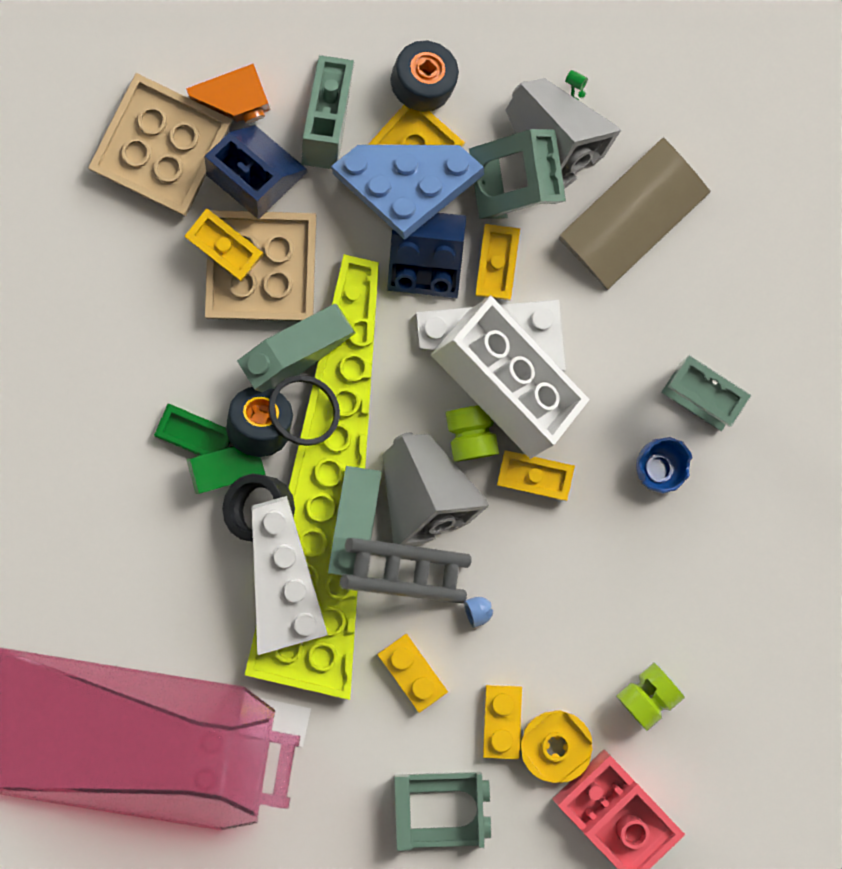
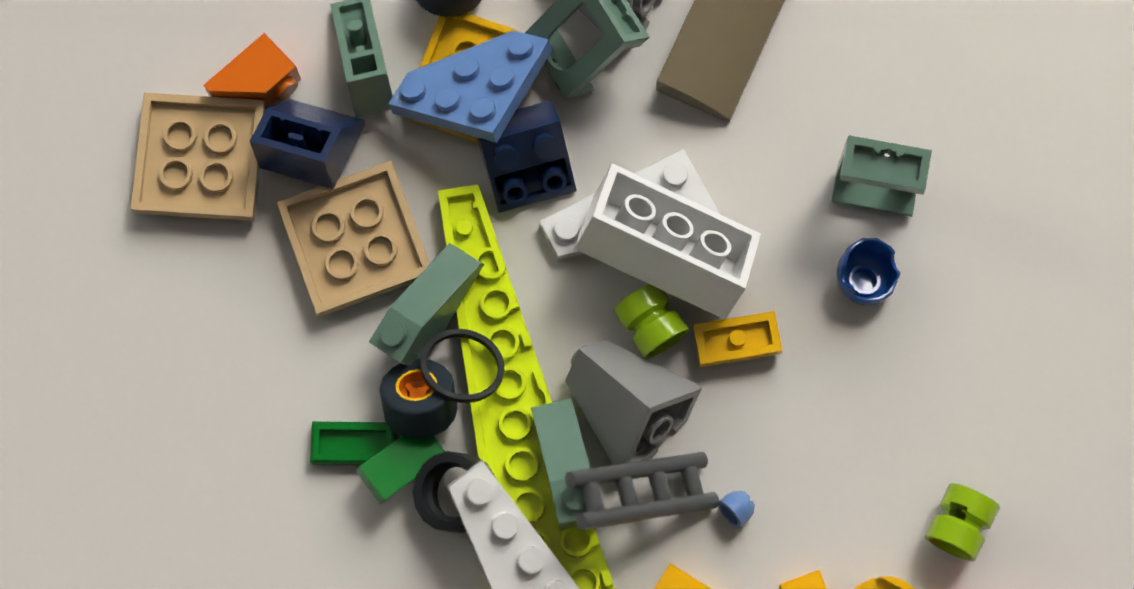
camera: 20 degrees left, 10 degrees down
(224, 245) = (307, 228): yellow plate -> none
(497, 262) = (602, 134): yellow plate -> none

